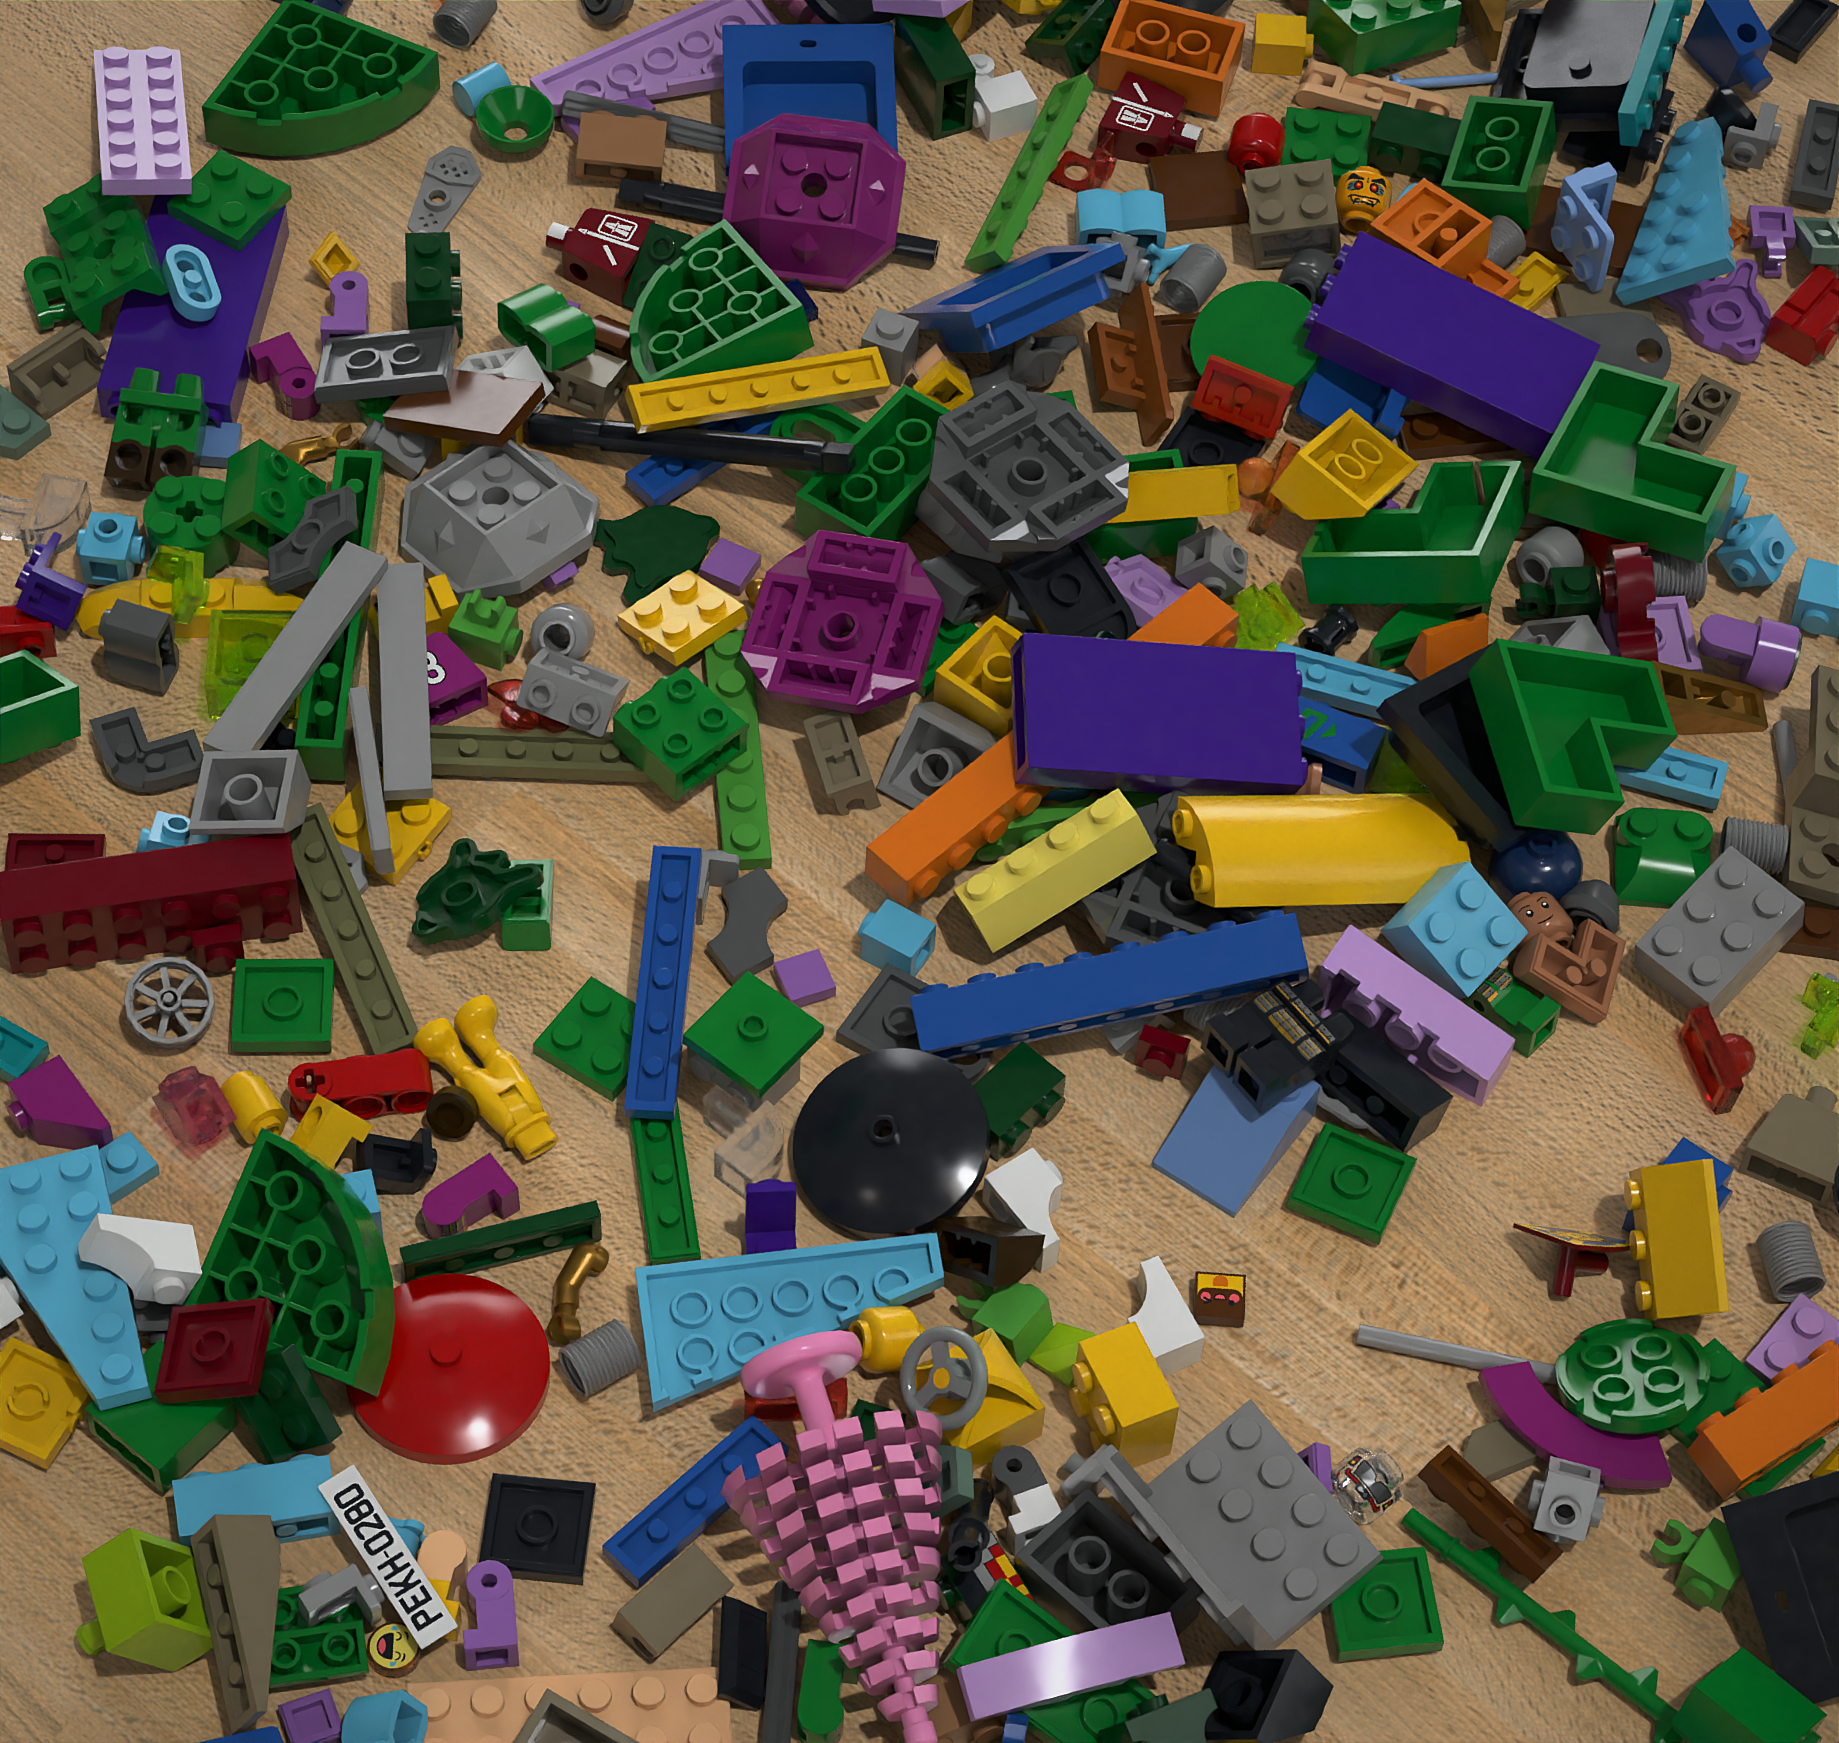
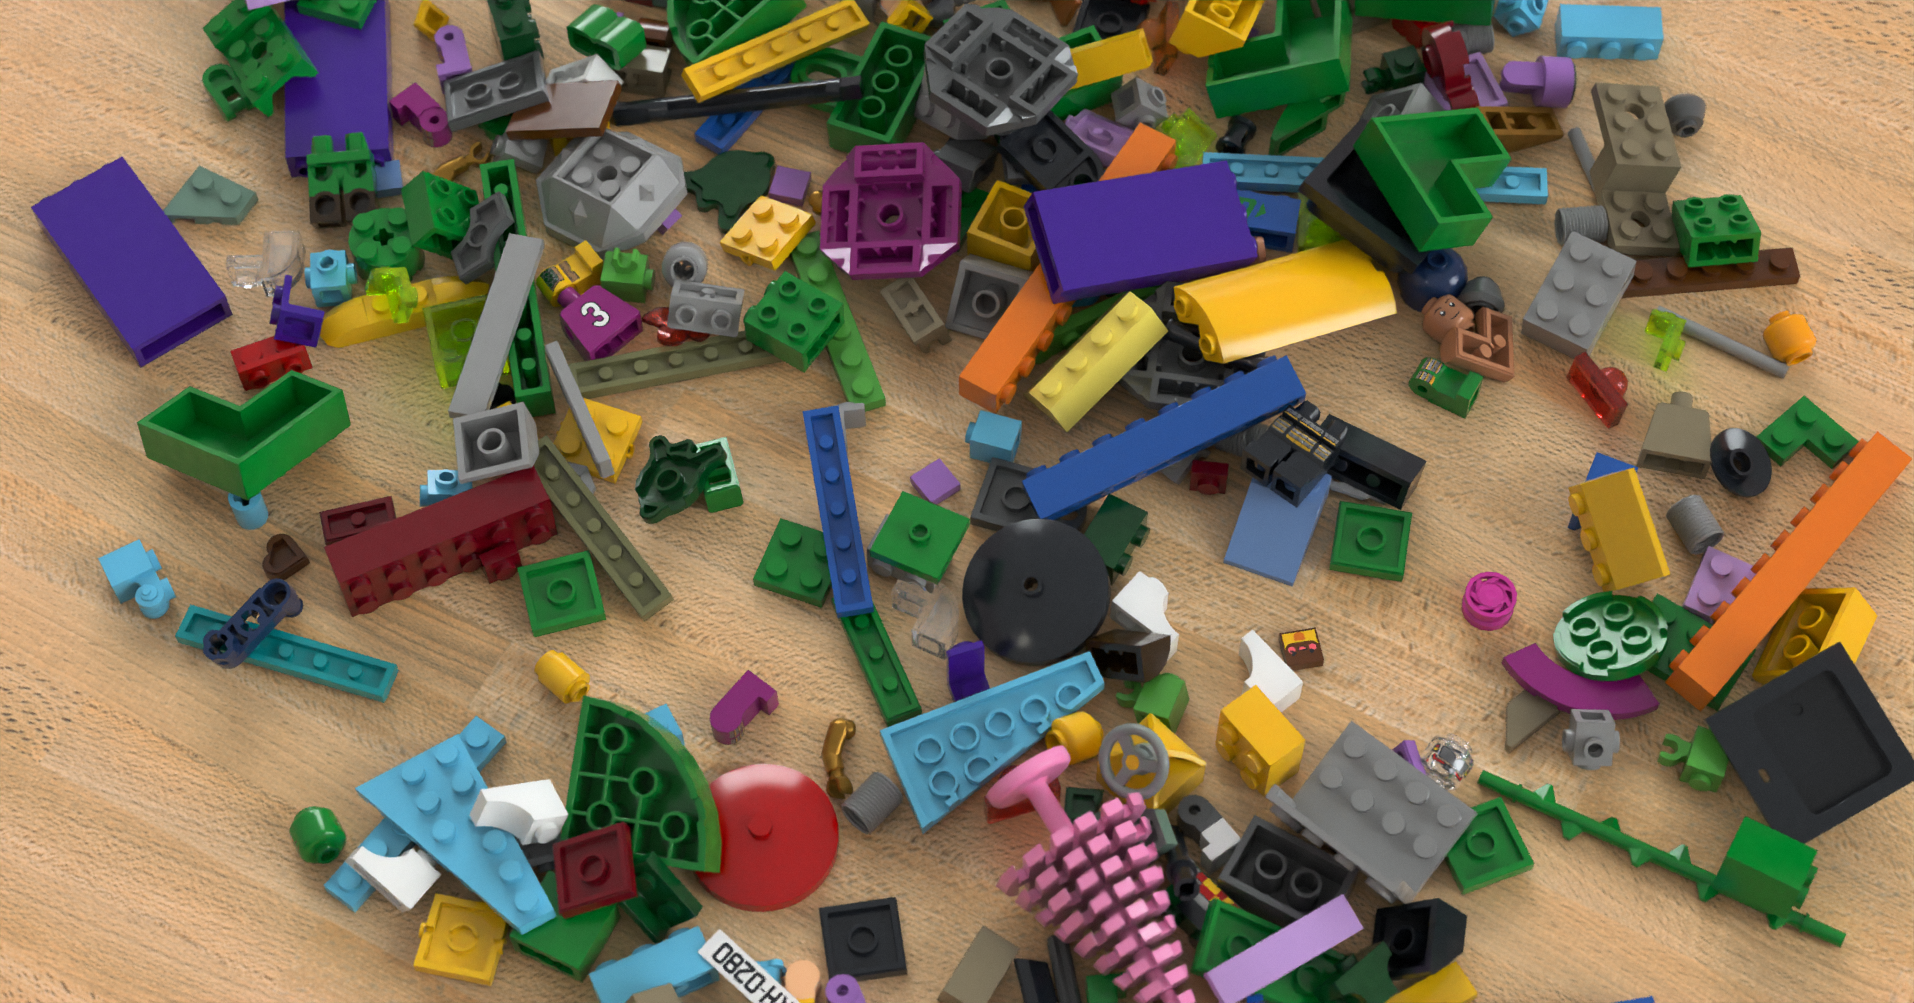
camera: 10 degrees left, 5 degrees up
(57, 370) = (250, 150): dark tan hinge -> none
(57, 1108) = (418, 712): magenta slope -> none
(140, 645) = (376, 347): dark grey brick -> none
(141, 763) = (403, 435): dark grey plate -> none
(169, 1003) = (478, 612): light grey wheel -> none
(191, 282) = (333, 61): medium azure plate -> none
(193, 1106) = (519, 686): clear pink brick -> none
(328, 1130) = (625, 681): yellow leg -> none
(365, 1084) = (638, 642): red piece -> none
(396, 1162) = (680, 692): black bracket -> none
(404, 683) = (582, 330): light grey tile -> none
(452, 1112) = (709, 644): dark brown tile -> none
(501, 1087) = (738, 619): yellow piece -> none
(503, 1242) = (775, 734): dark green tile -> none
(687, 1505) = (971, 892): blue plate -> none
(752, 908) = (881, 438): dark grey tile -> none
(1059, 1352) = (1202, 716): lime slope -> none
(1083, 1475) = (1248, 803): light grey piece -> none
(1414, 1016) = (1383, 408): lavender wedge -> none
(1447, 644) = (1326, 130): orange slope -> none
(1447, 1351) = (1474, 649): light grey bar -> none
(1455, 930) = (1393, 339): medium azure brick -> none
(1486, 1297) = (1489, 602): none -> dark pink wheel
(1490, 1514) = (1540, 762): reddish brown plate -> none
(1548, 549) = (1374, 40): light grey head -> none
(1570, 1257) = (1545, 551): dark red shield -> none
(1658, 855) = (1518, 248): green slope -> none

